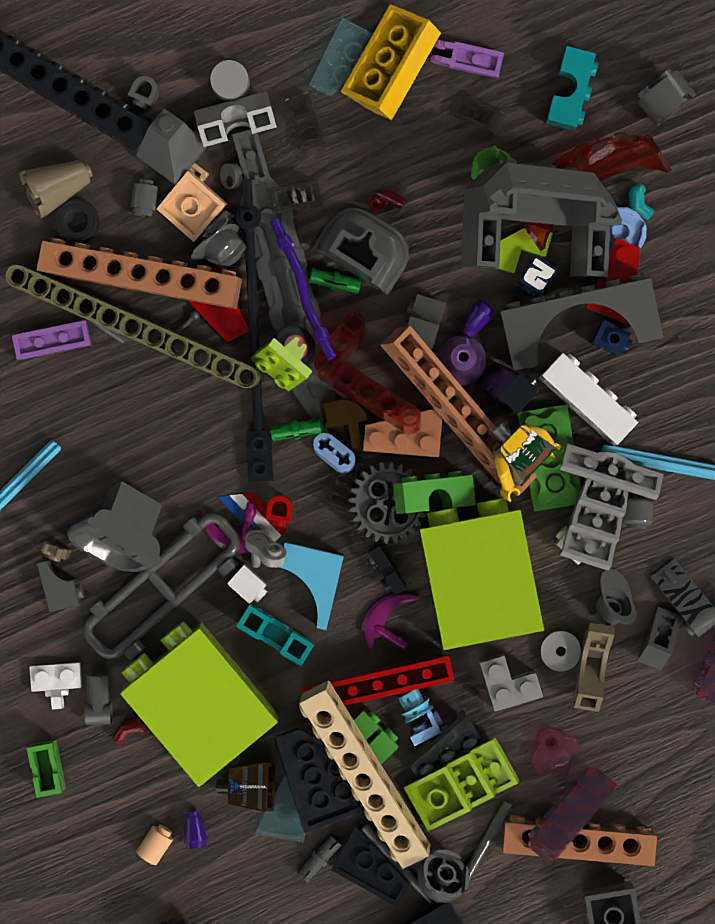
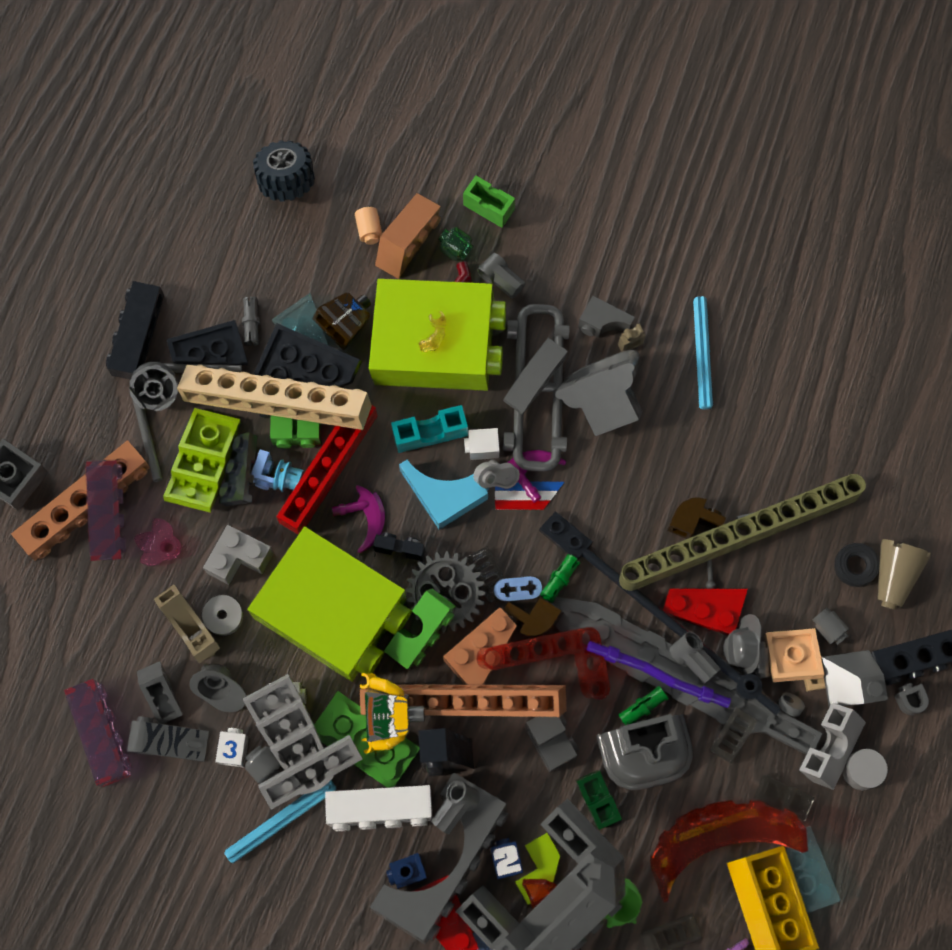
camera: 135 degrees right, 15 degrees down
(51, 263) = (841, 519): nougat brick -> none
(51, 340) = (784, 469): medium lavender plate -> none
(56, 680) = (541, 262): white hinge -> none
(105, 761) = (455, 244): none -> clear green head
(134, 806) = (406, 235): none -> nougat wedge
(155, 379) = (693, 512): none -> dark brown brick
(158, 593) = (535, 376): none -> dark grey slope
(194, 831) = (351, 258): dark purple cone -> none
(209, 692) = (436, 338): none -> clear yellow piece
(263, 282) = (689, 651): none -> dark grey piece
(279, 511) = (513, 512): red plate -> none
(287, 357) = (619, 618): lime plate -> none
(371, 151) = (720, 826): none -> clear red windscreen
(385, 198) = (671, 802): dark red arm -> none
(431, 251) = (598, 799): none -> dark green slope
(467, 371) = (497, 755): medium lavender cone -> none
(477, 318) = (517, 785): dark purple cone -> none
(539, 344) = (458, 801): none -> dark grey piece
(647, 546) = (232, 748): none -> white brick

